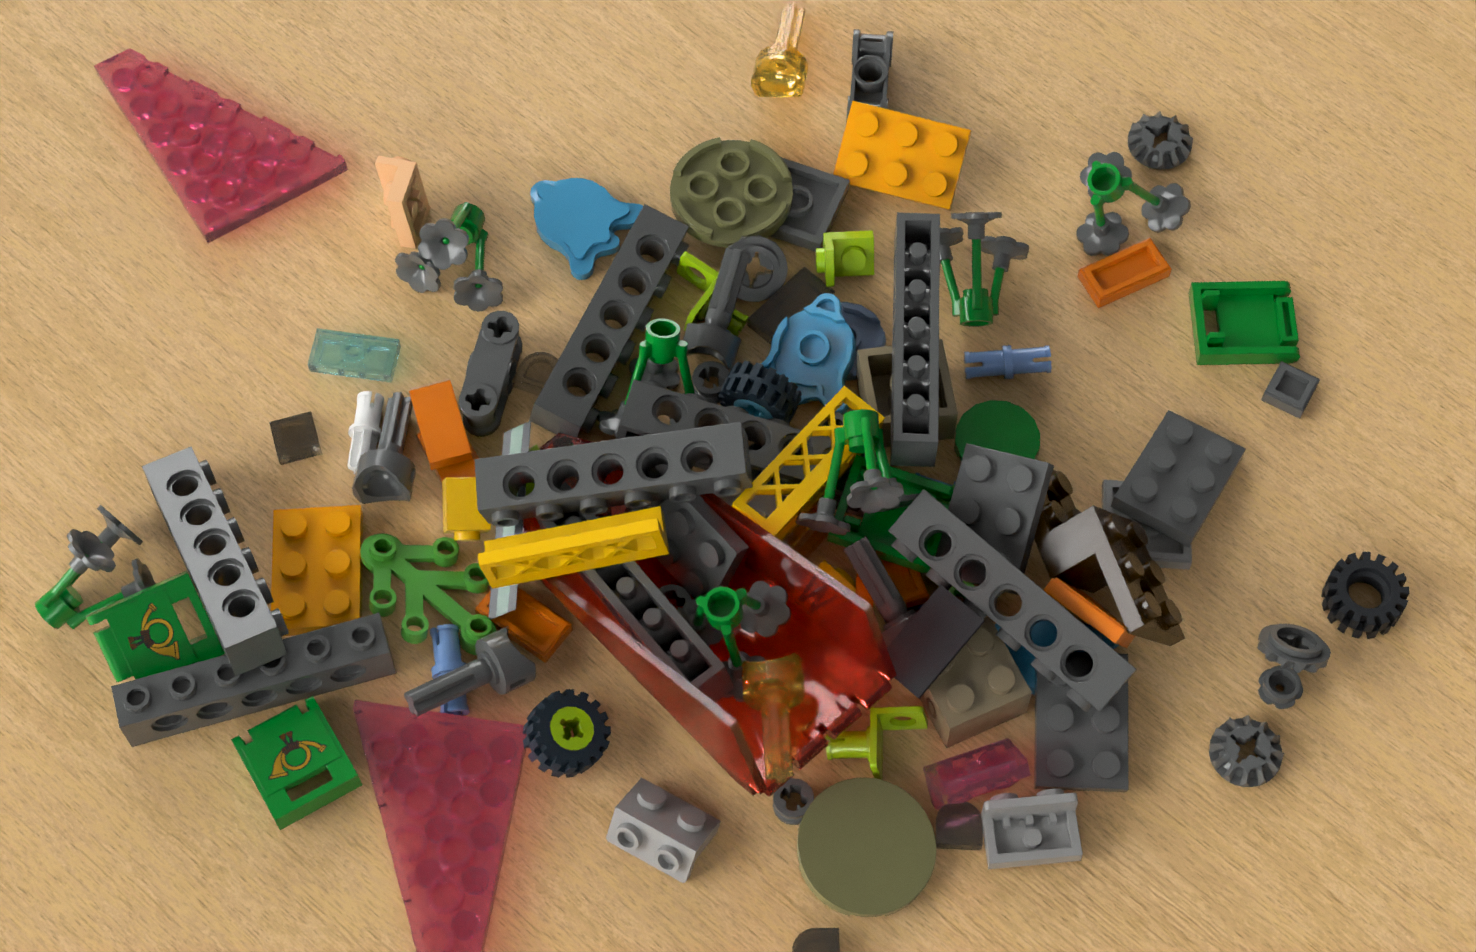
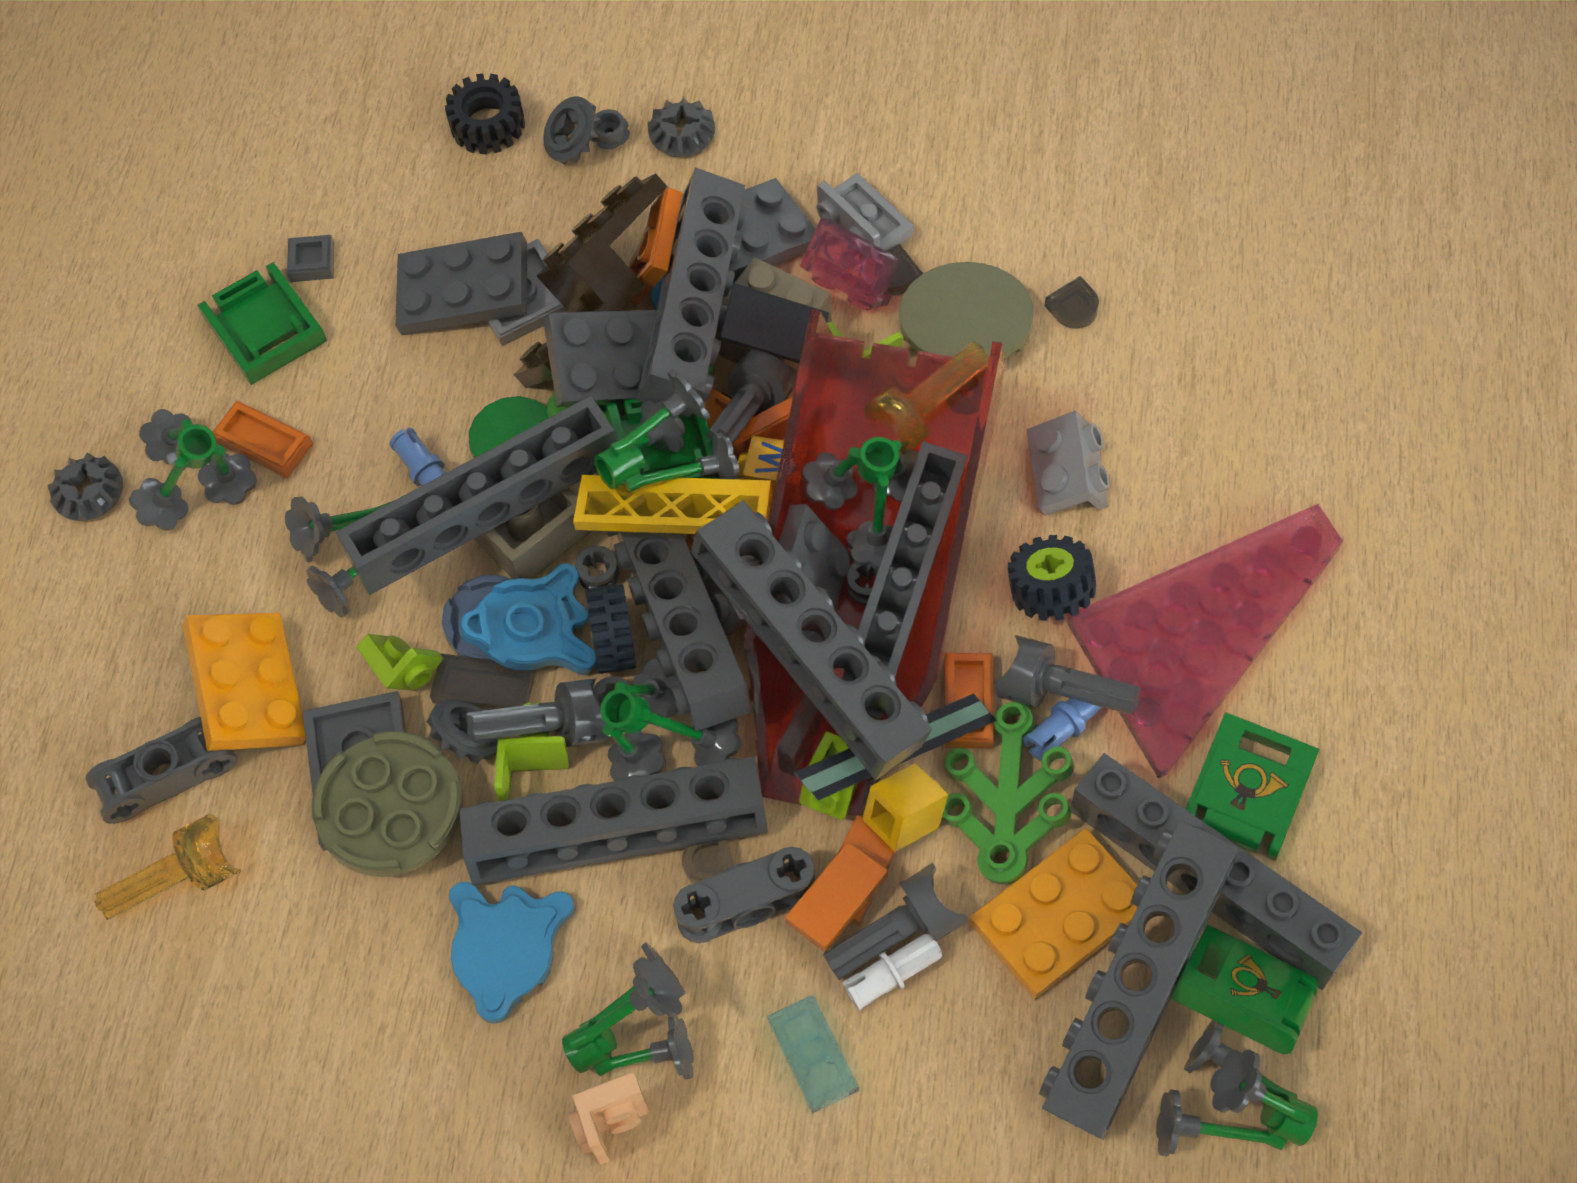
camera: 120 degrees left, 0 degrees up
(295, 438) = (943, 1041): clear smoke tile -> none
(574, 547) = (902, 634): yellow fence -> none

